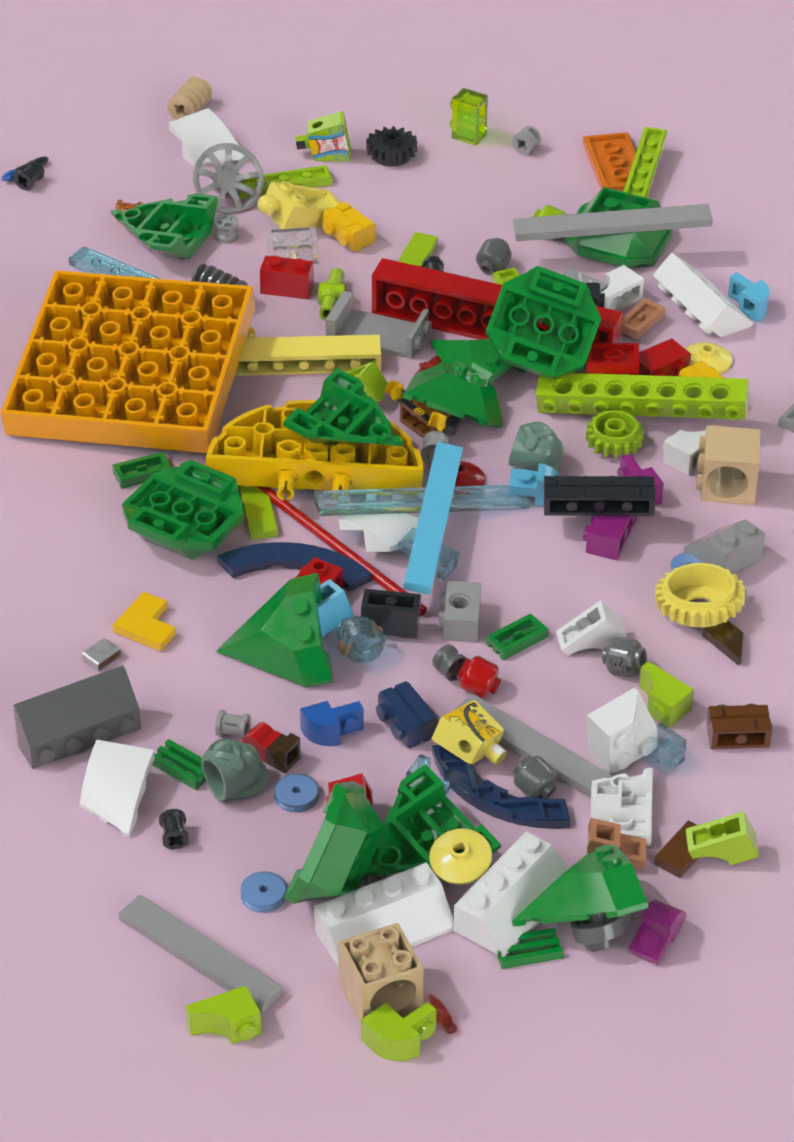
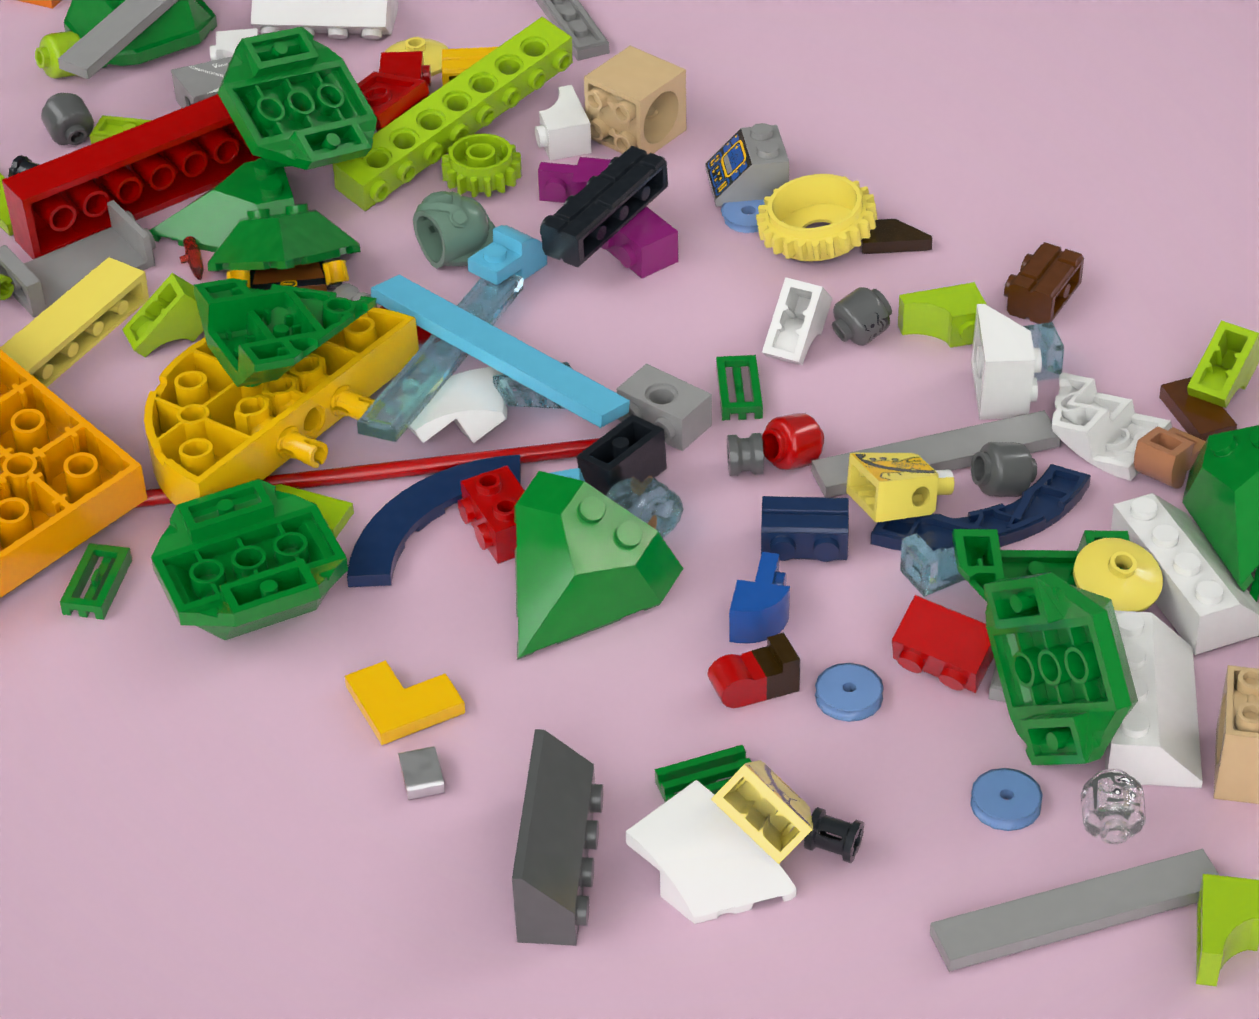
camera: 55 degrees left, 0 degrees up
(157, 784) = (765, 809): none -> light yellow torso
(224, 719) = (681, 704): light grey bush -> none
(233, 770) = (781, 727): sand green helmet -> none
(280, 933) = (1112, 805): none -> clear head

